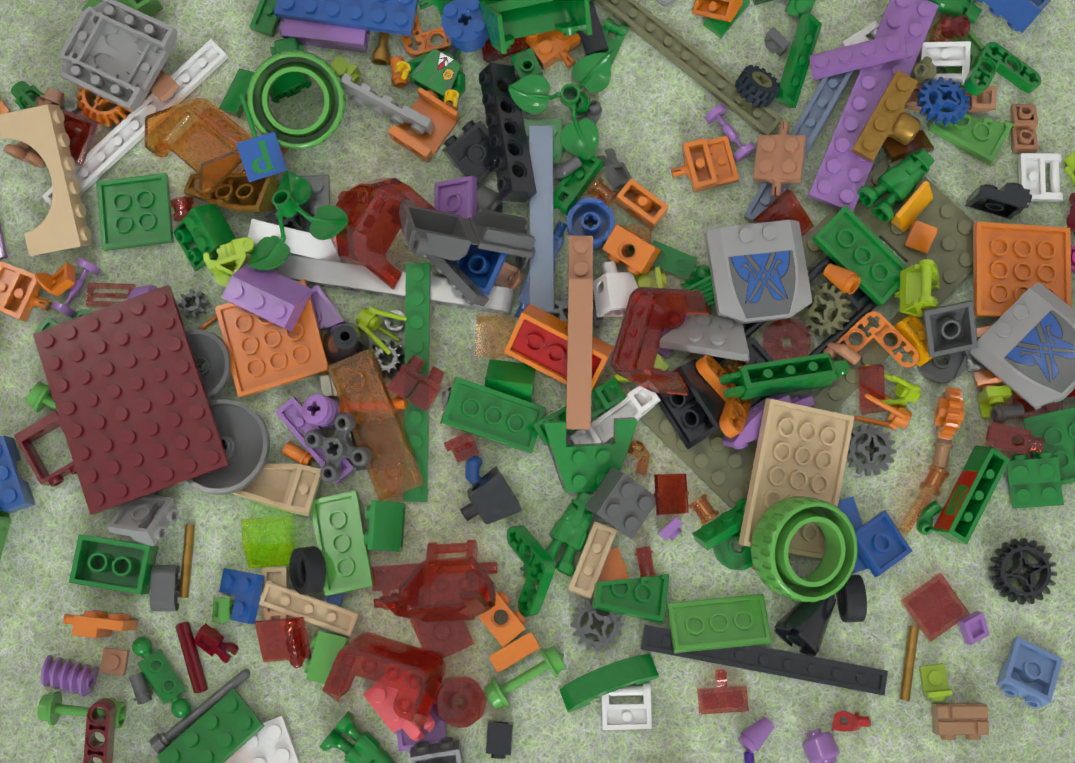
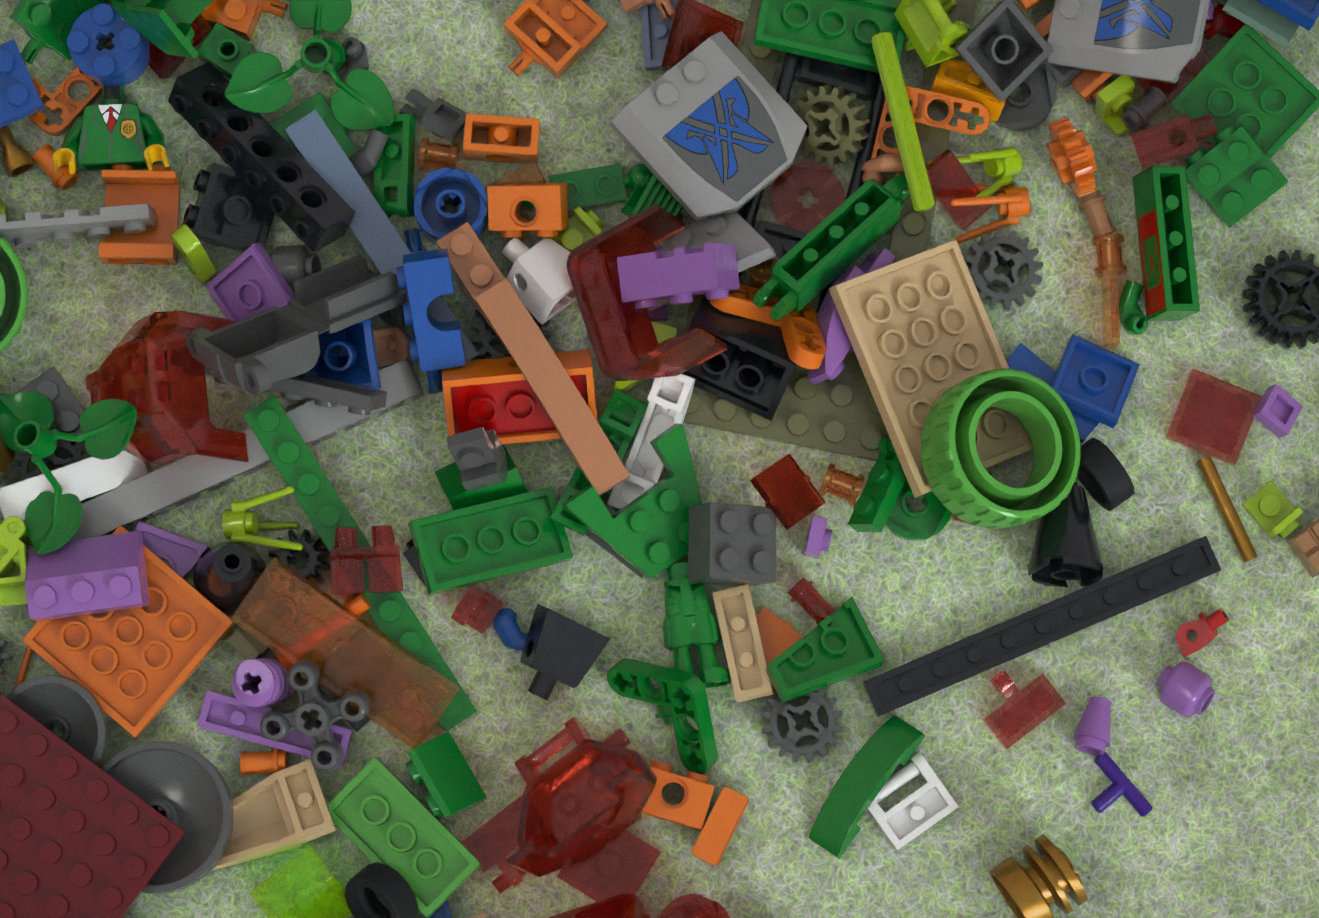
camera: 45 degrees left, 0 degrees up
(396, 329) = (268, 511): bush -> none
(438, 161) = (193, 254): none -> lime beam
(493, 336) = (419, 437): clear orange piece -> none
(497, 694) = (776, 805): bright green piece -> none
(515, 366) = (479, 458): none -> dark grey brick
(533, 289) = (435, 343): none -> blue arch
(643, 456) = (718, 467): clear orange arm -> none
(688, 337) = (678, 275): none -> medium lavender wedge
(718, 623) = (955, 617): bright green tile -> none
(842, 278) = (825, 70): orange cone -> none
(867, 333) = (903, 121): none -> lime axle

